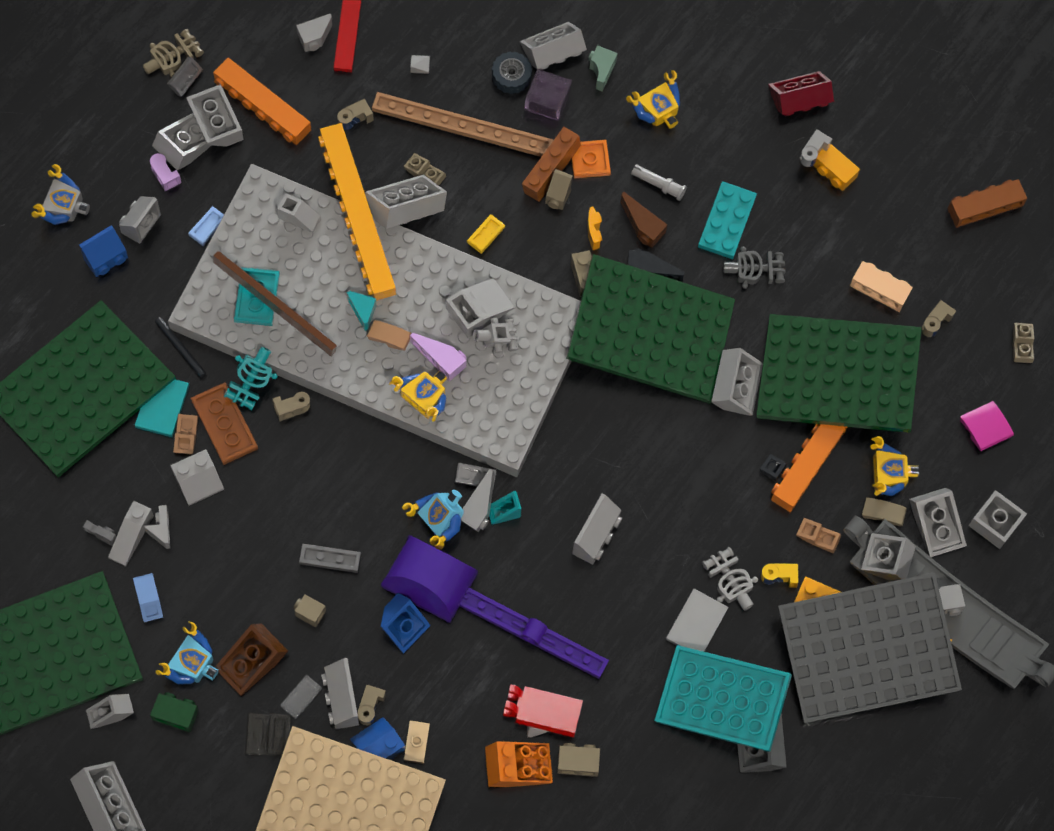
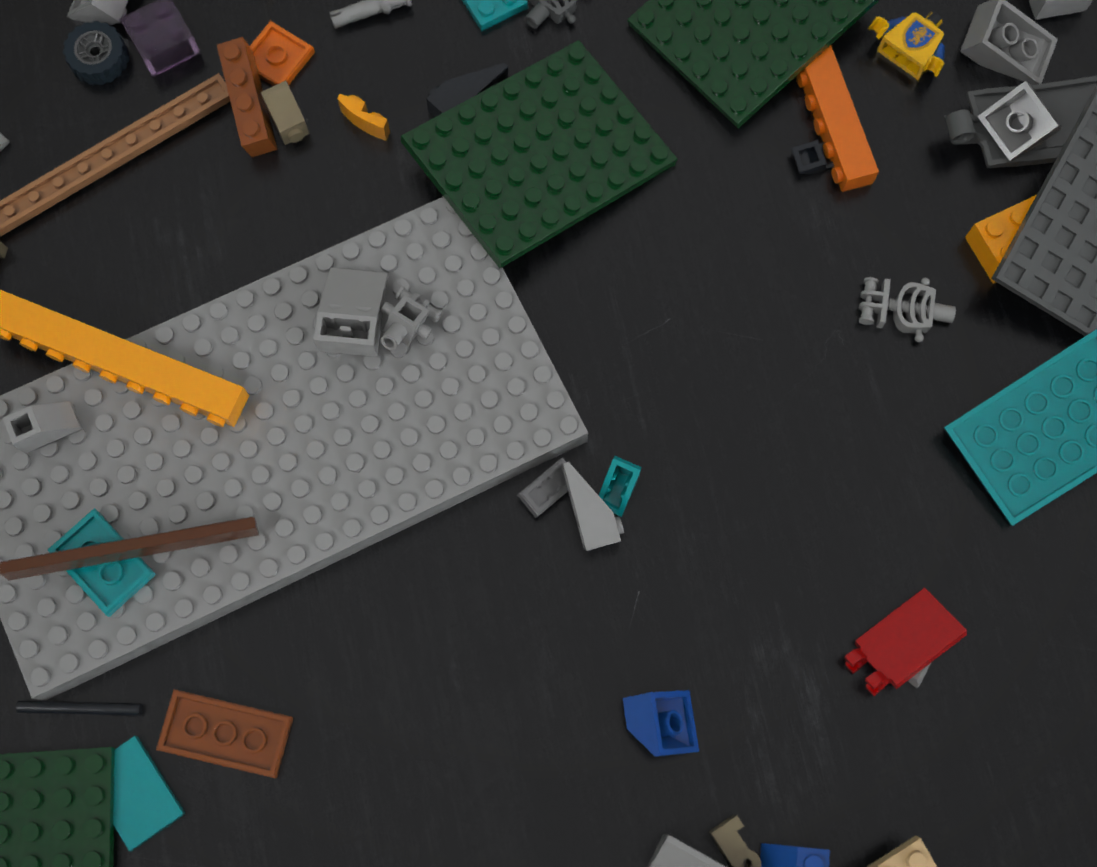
camera: 45 degrees left, 5 degrees up
(185, 434) = (197, 794): medium nougat slope -> none
(197, 477) = (266, 827): light grey slope -> none
(259, 362) = (190, 634): teal torso -> none
(292, 406) = (276, 634): dark tan leg -> none
(309, 610) = (555, 825): dark tan brick -> none
(330, 558) = (508, 744): flat silver plate -> none
(363, 307) = (231, 446): teal slope -> none
(389, 334) = (294, 443): medium nougat slope -> none
(406, 201) = (143, 289): light grey slope -> none
(416, 742) = (825, 827): tan plate -> none
(420, 166) = (123, 243): dark tan slope -> none
(423, 392) = (404, 462): torso -> none
(440, 355) = (377, 404): lavender slope -> none
(440, 513) = (569, 566): torso -> none
(444, 583) = (655, 638): dark purple plate -> none
(486, 233) = (263, 236): yellow plate -> none
(518, 764) = (948, 728): orange slope -> none
(578, 760) = (996, 652): dark tan brick -> none
(580, 265) = (401, 168): dark tan brick -> none
(597, 530) = (732, 404): light grey slope -> none
(645, 224) = (404, 59): reddish brown slope -> none
(697, 621) = (927, 384): light grey tile -> none
(737, 381) = (677, 114): light grey slope -> none
(780, 573) = (936, 254): yellow leg -> none
(817, 535) = (926, 175): medium nougat slope -> none
(882, 510) = (953, 87): dark tan slope -> none

